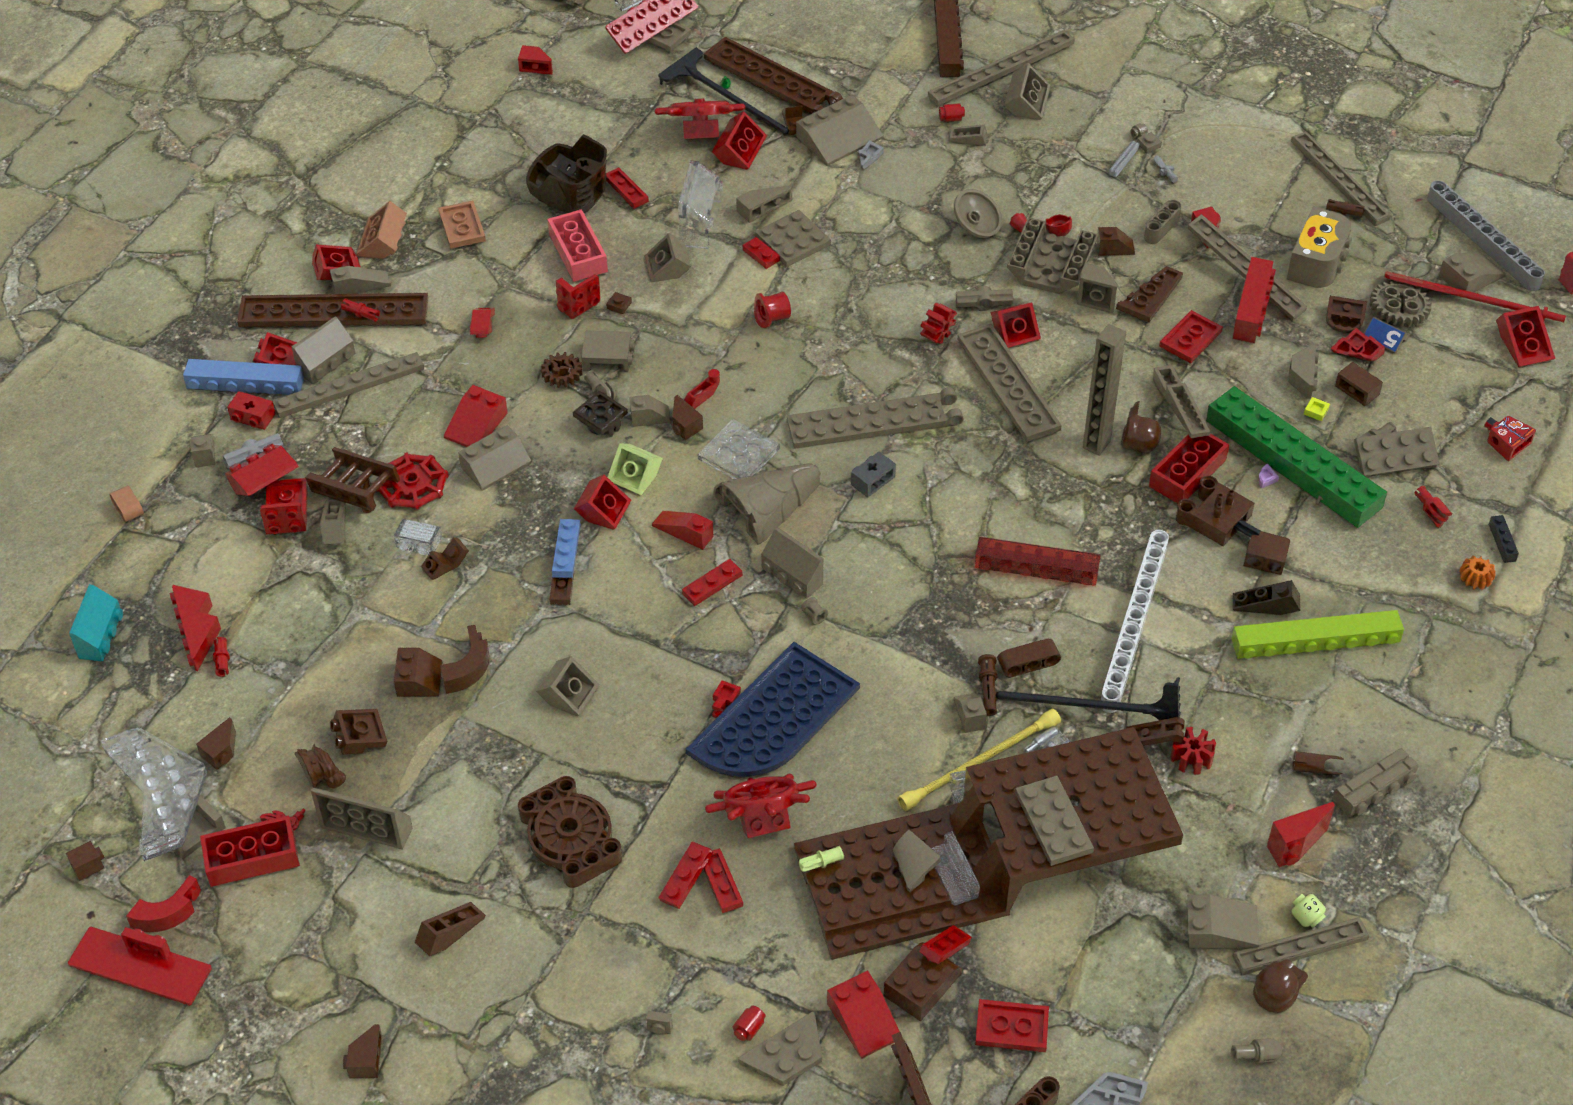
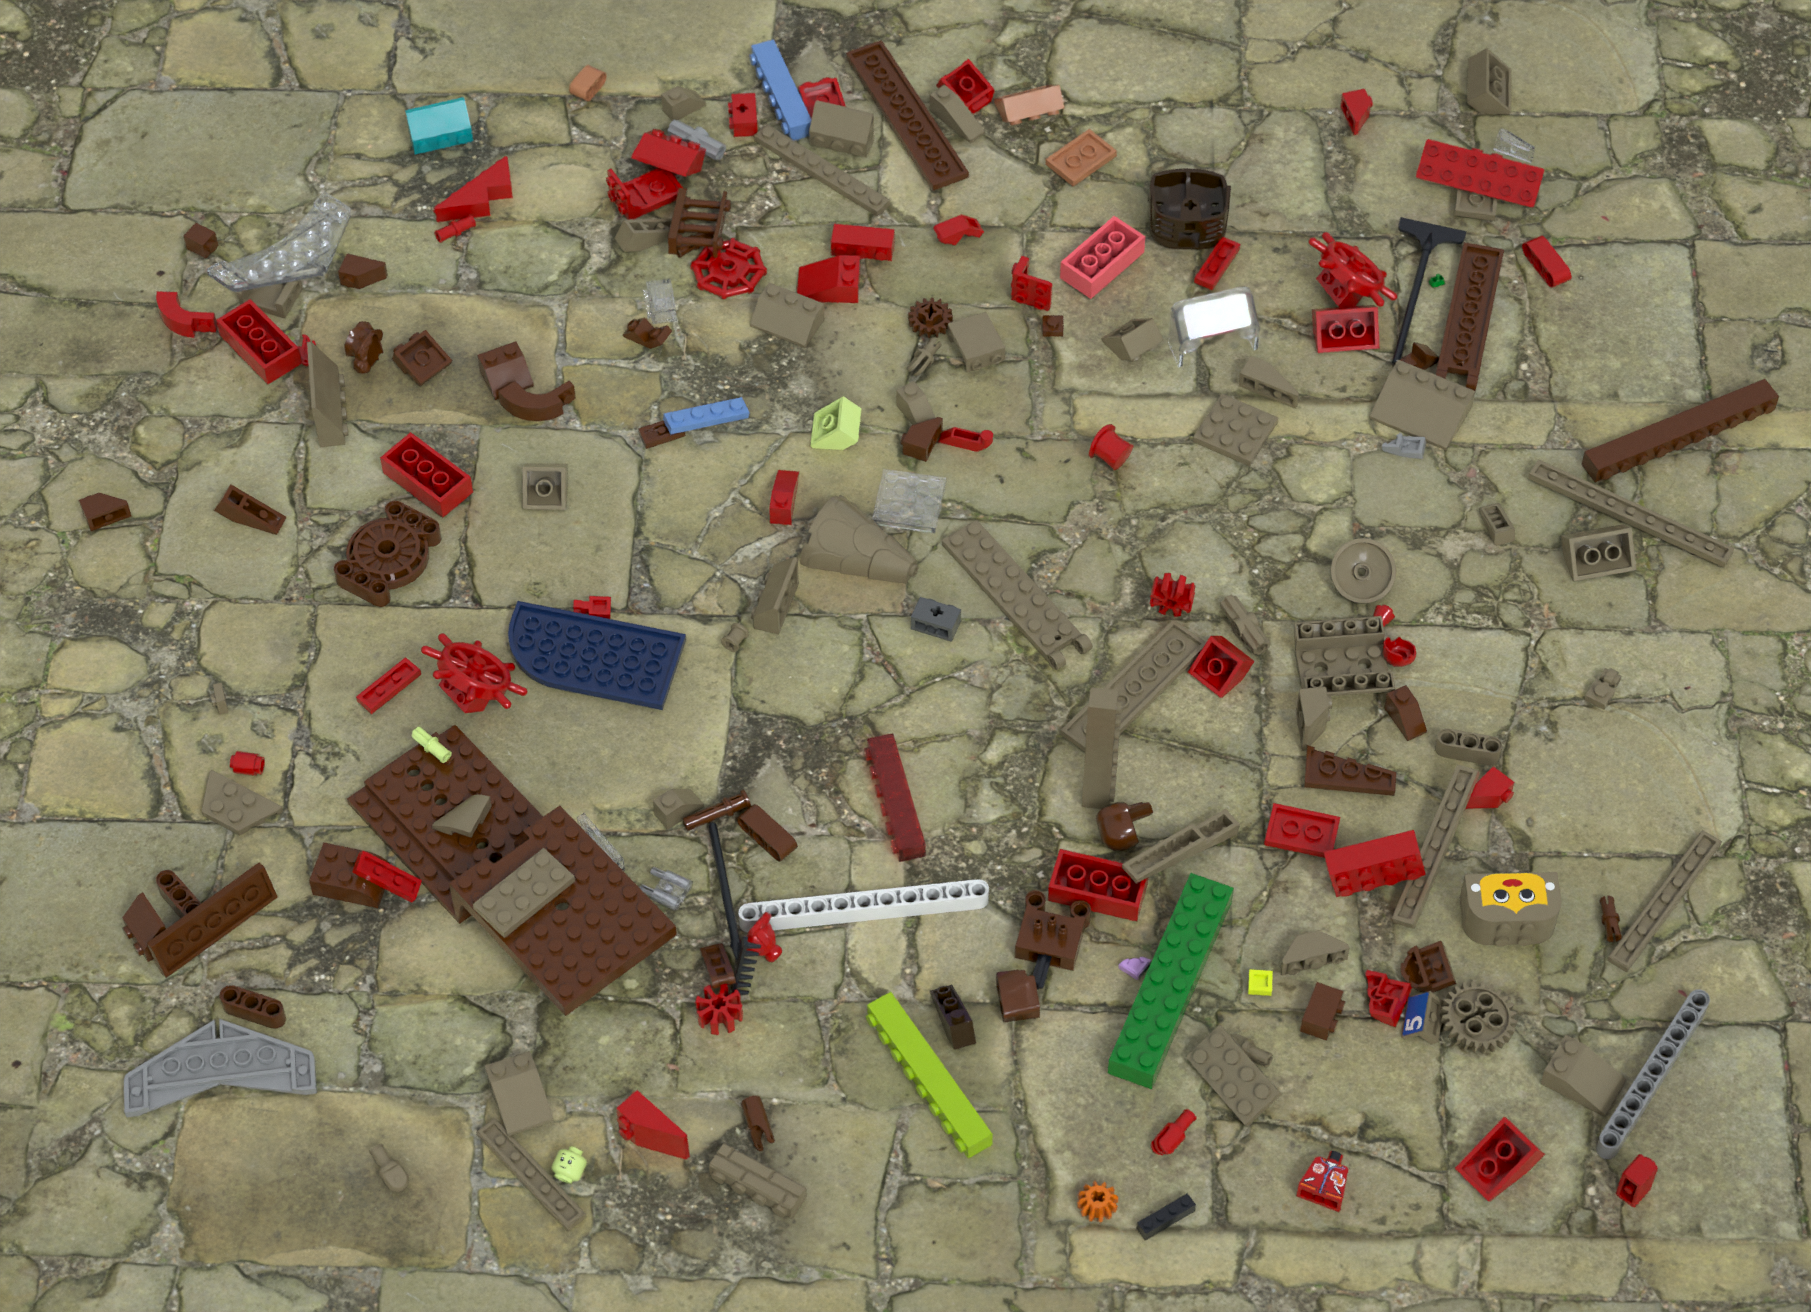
camera: 65 degrees right, 5 degrees up
(141, 963) = (123, 326): red bracket -> none
(360, 310) = (909, 131): red pin -> none
(451, 383) = (863, 242): none -> red brick
(501, 768) = (426, 474): none -> red brick
(599, 414) = (884, 370): dark brown piece -> none
(602, 503) = (777, 421): red slope -> none
(685, 875) = (379, 656): red plate -> none
(712, 582) = (731, 545): red plate -> none
(750, 21) = (1546, 261): none -> red beam
(761, 253) = (1196, 411): red plate -> none
(862, 1013) = (294, 844): red slope -> none
(911, 798) = (697, 874): light yellow hose -> none
(951, 112) = (1519, 493): red brick -> none
(955, 871) = (469, 852): clear panel -> none
(1012, 1025) = (333, 963): red plate -> none
(1123, 159) = (1554, 679): light grey axle -> none
(1138, 692) = (763, 934): none -> red hair
(1165, 169) = (1563, 725): light grey piece -> none
(1278, 986) = (458, 1163): reddish brown piece -> none
(1470, 295) = (1531, 1047): red piece -> none

